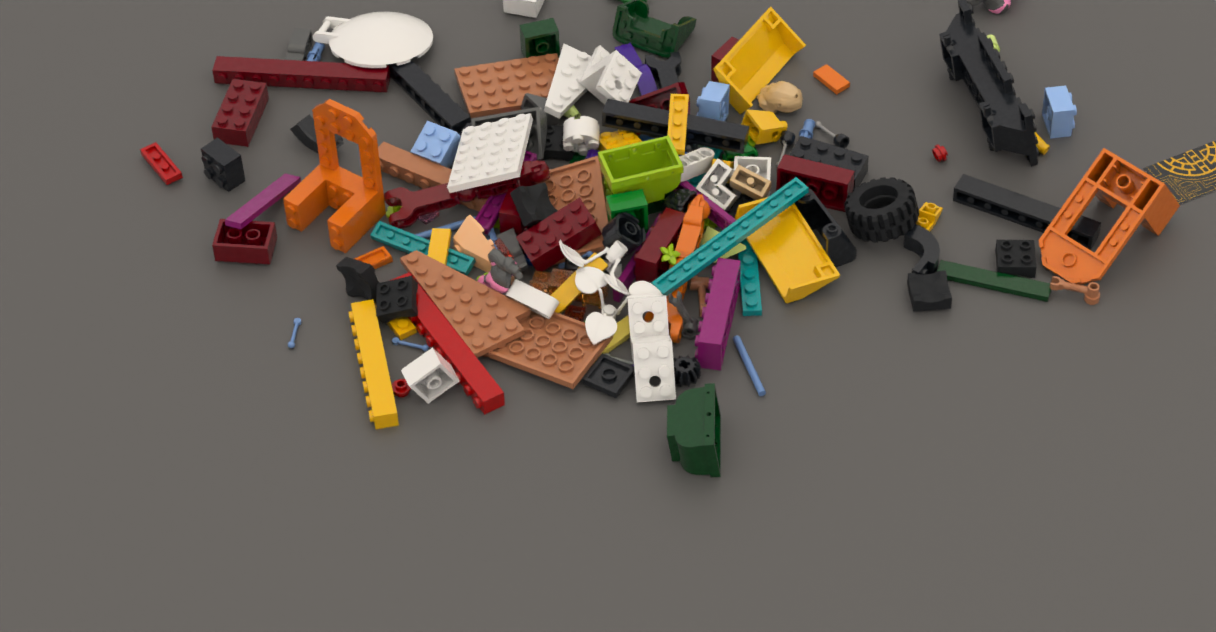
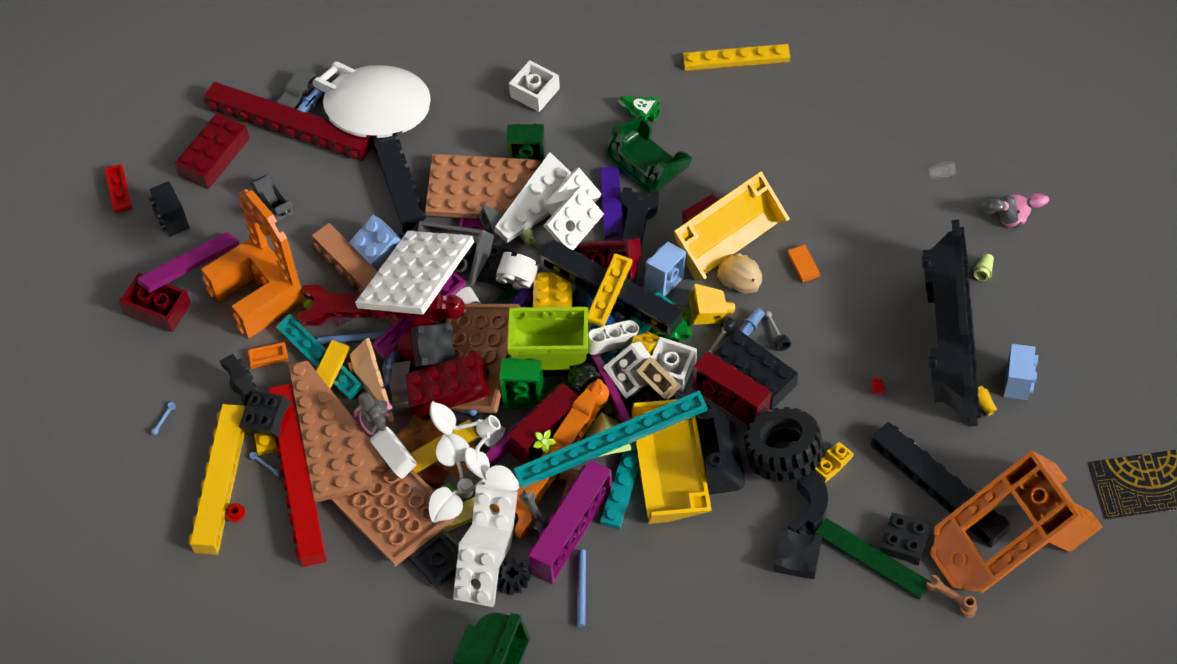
camera: 20 degrees right, 10 degrees up
(430, 375) = (259, 513): white brick -> none
(501, 246) = (389, 386): clear red tile -> none
(624, 229) = (507, 404): black brick -> none

